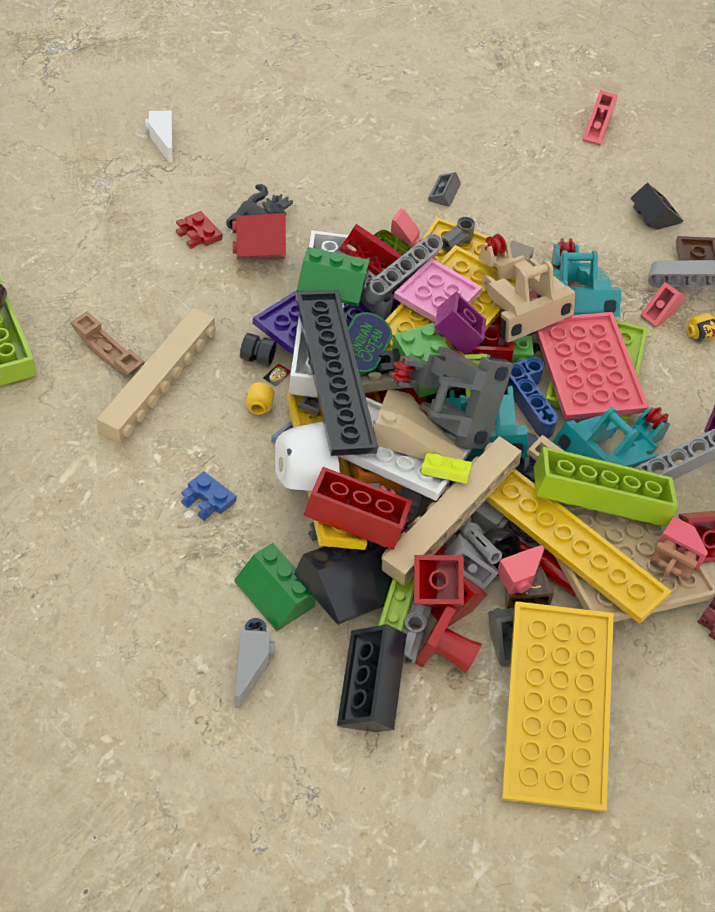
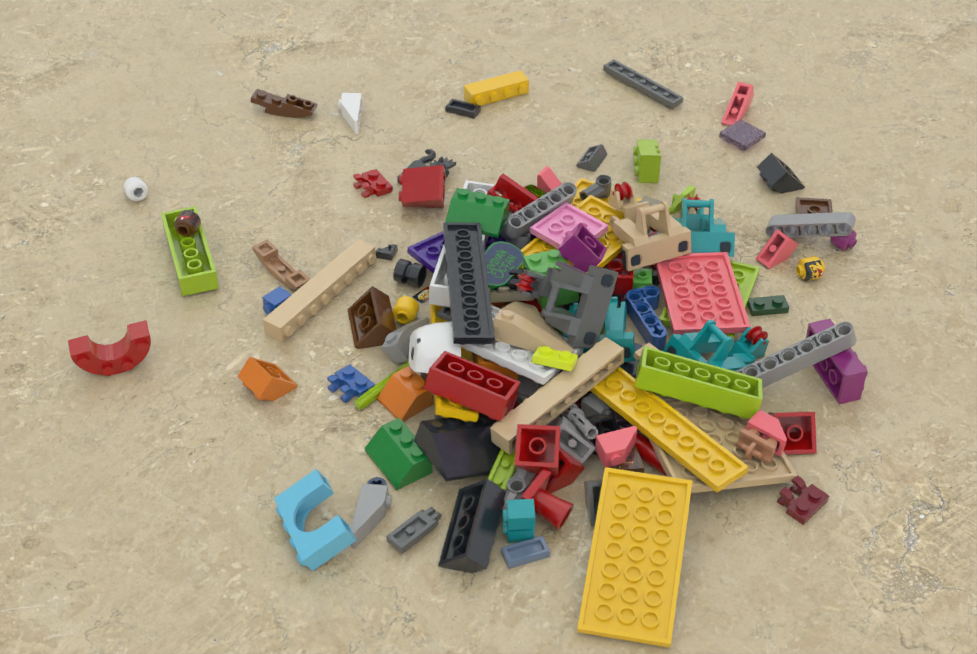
camera: 10 degrees right, 10 degrees down
(82, 129) = (287, 107): none -> reddish brown slope
(106, 391) = (274, 299): none -> brick
(109, 496) = (265, 379): none -> orange slope
(165, 664) = (294, 506): none -> medium azure arch
(222, 412) = (371, 319): none -> reddish brown slope
(227, 320) = (387, 252): none -> black tile
(246, 496) = (372, 394): none -> lime axle
(260, 439) = (398, 341): none -> light grey slope
(273, 509) = (405, 394): none -> orange slope
(290, 126) = (463, 108): none -> black tile
(304, 683) = (414, 529): none -> dark grey hinge
(325, 100) = (496, 88): none -> yellow brick
(424, 668) = (519, 520): none -> teal piece
(432, 702) = (525, 552): none -> sand blue tile
(491, 90) = (643, 84): none -> dark grey plate
(508, 192) = (647, 160): none -> lime wedge
(547, 243) = (676, 202): none -> lime slope
(609, 155) = (742, 134): none -> clear purple tile
(661, 374) = (768, 305): none -> dark green plate

